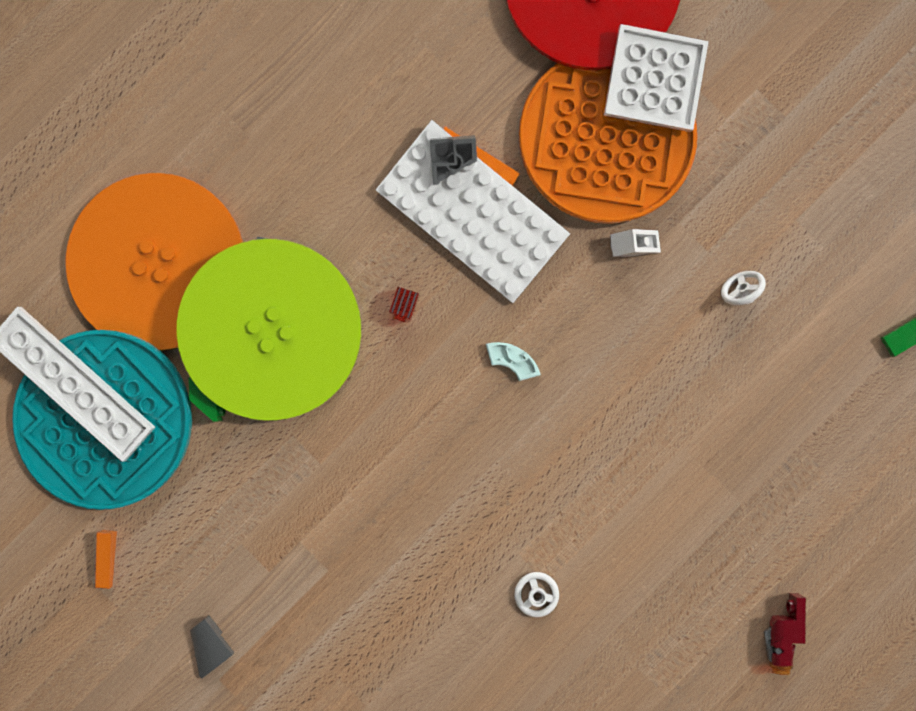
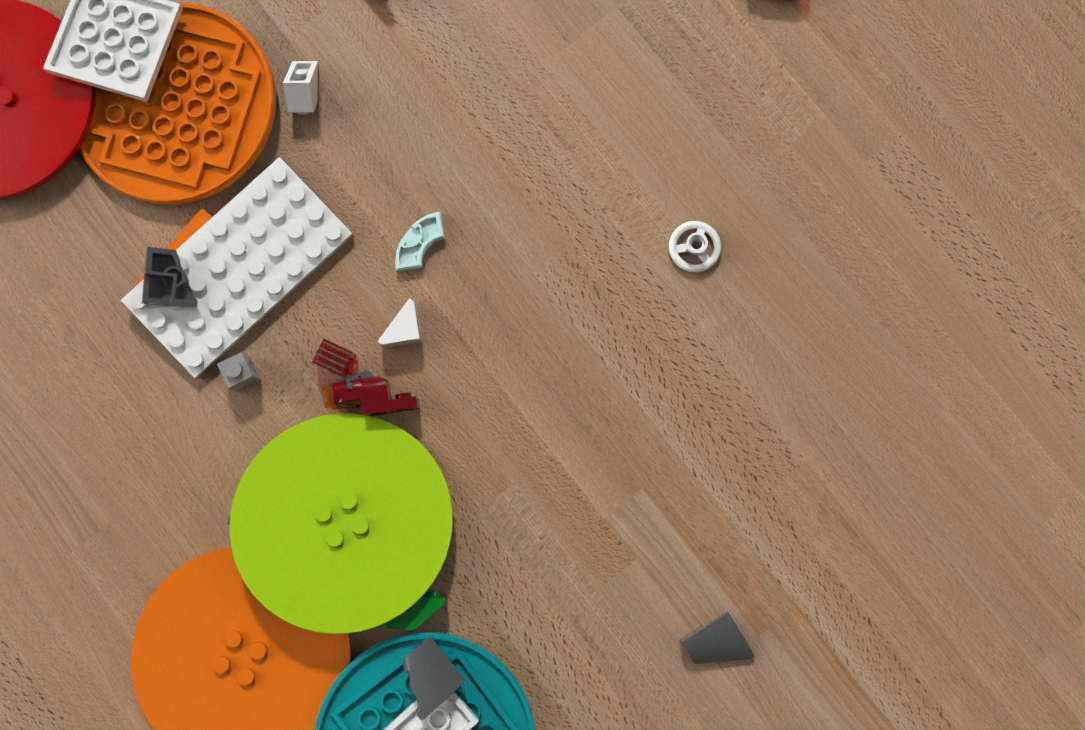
camera: 80 degrees left, 5 degrees down
(153, 419) = (431, 676): none -> dark grey slope
(379, 336) = (370, 393): none -> dark red plate
(384, 226) = (238, 371): none -> light grey brick
(436, 358) = (404, 328): none -> white slope

